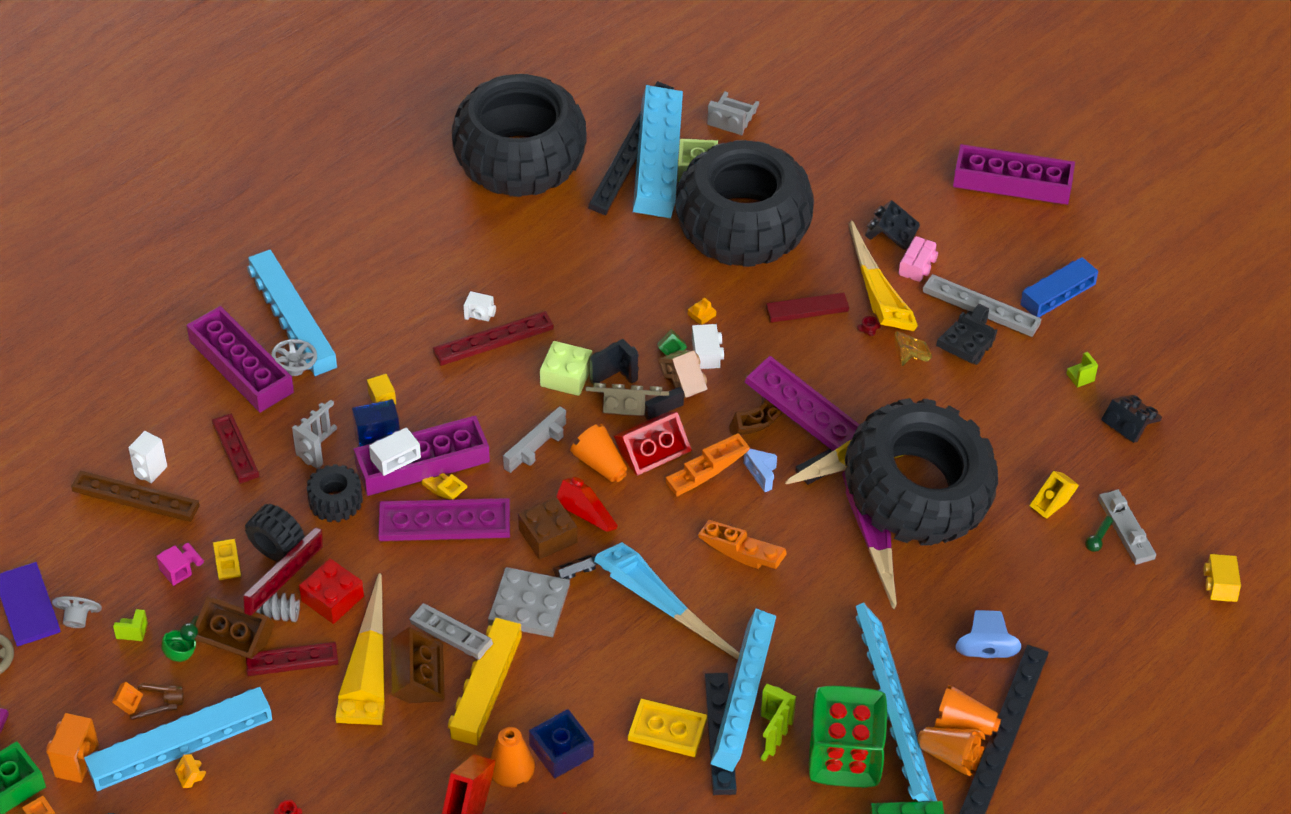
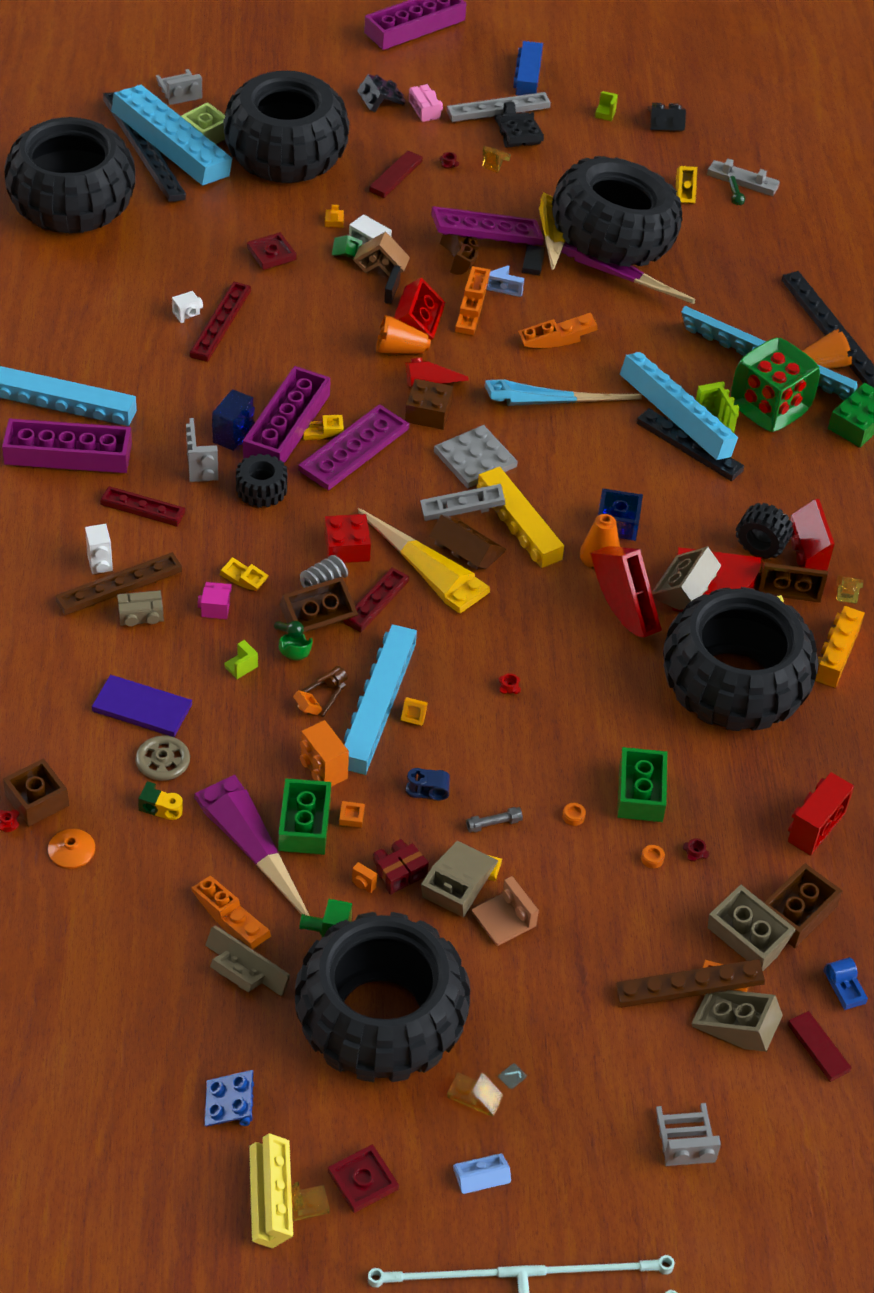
camera: 50 degrees left, 0 degrees up
(75, 613) = (194, 681): light grey wheel -> none
(121, 527) = (140, 608): none -> dark tan brick
(273, 531) = (265, 528): black tyre -> none
(283, 571) = (309, 545): dark red tile -> none
(294, 359) = (110, 417): light grey wheel -> none
(380, 389) = (198, 401): yellow brick -> none
(395, 451) = (279, 419): white brick -> none
(525, 448) = (346, 371): light grey hinge -> none
(565, 368) = (301, 304): yellowish green brick -> none
(569, 569) = (477, 413): plate -> none
(609, 305) = (271, 250): none -> dark red plate
(614, 359) = (336, 275): black bracket -> none
(625, 401) = (369, 297): dark tan bracket -> none
(667, 727) = (659, 462): yellow plate -> none
(883, 298) = (444, 141): yellow plate -> none
(965, 712) = (806, 330): orange cone -> none
(988, 637) = (762, 283): medium blue piece -> none
(1222, 577) = (832, 168): yellow brick -> none

